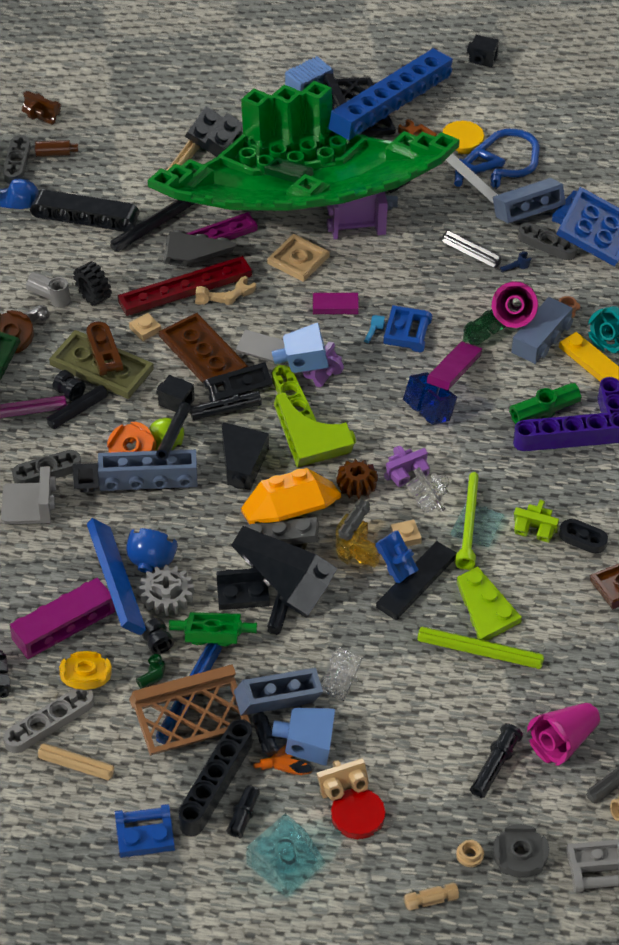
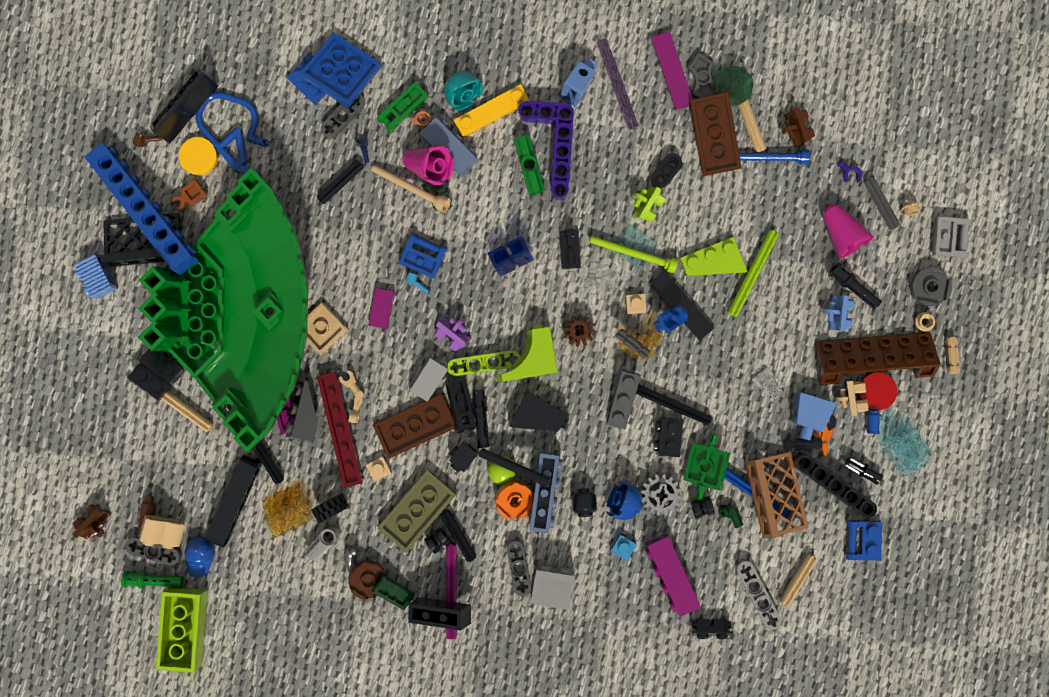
camera: 75 degrees left, 40 degrees up
(40, 157) = (161, 531): none -> tan brick
(74, 249) = (286, 511): none -> clear yellow slope
(85, 670) = (723, 564): yellow tile -> none
(86, 476) = (536, 541): black brick -> none
(87, 567) = (623, 547): none -> dark azure plate
(103, 348) = (408, 509): reddish brown plate -> none
(116, 577) = (645, 531): blue tile -> none
(140, 514) = (584, 503): none -> black head
(278, 691) = (779, 430): sand blue brick -> none
(287, 170) = (233, 320): dark green tile -> none
(289, 496) = (593, 384): light orange wedge -> none
(292, 571) = (671, 401): black wedge -> none
(303, 350) = (447, 348): medium blue torso -> none
(314, 812) = (873, 421): none -> blue pin
(405, 462) = (571, 281): medium lavender hips -> none
(410, 800) = (877, 354): none -> reddish brown bracket
(442, 747) = (838, 312): none -> medium blue hips
(451, 460) = (570, 249): none -> black hinge
(454, 365) = (481, 228): magenta tile -> none
(465, 92) = (139, 140): none -> reddish brown hand
(471, 177) = (250, 163): white sticker -> none
(473, 320) = (440, 202): none -> tan piece
(483, 50) = (89, 111): black brick -> none
(513, 112) = (183, 106): none -> black slope
(529, 200) = (296, 119): sand blue brick -> none
(575, 287) = (403, 106): none -> green plate

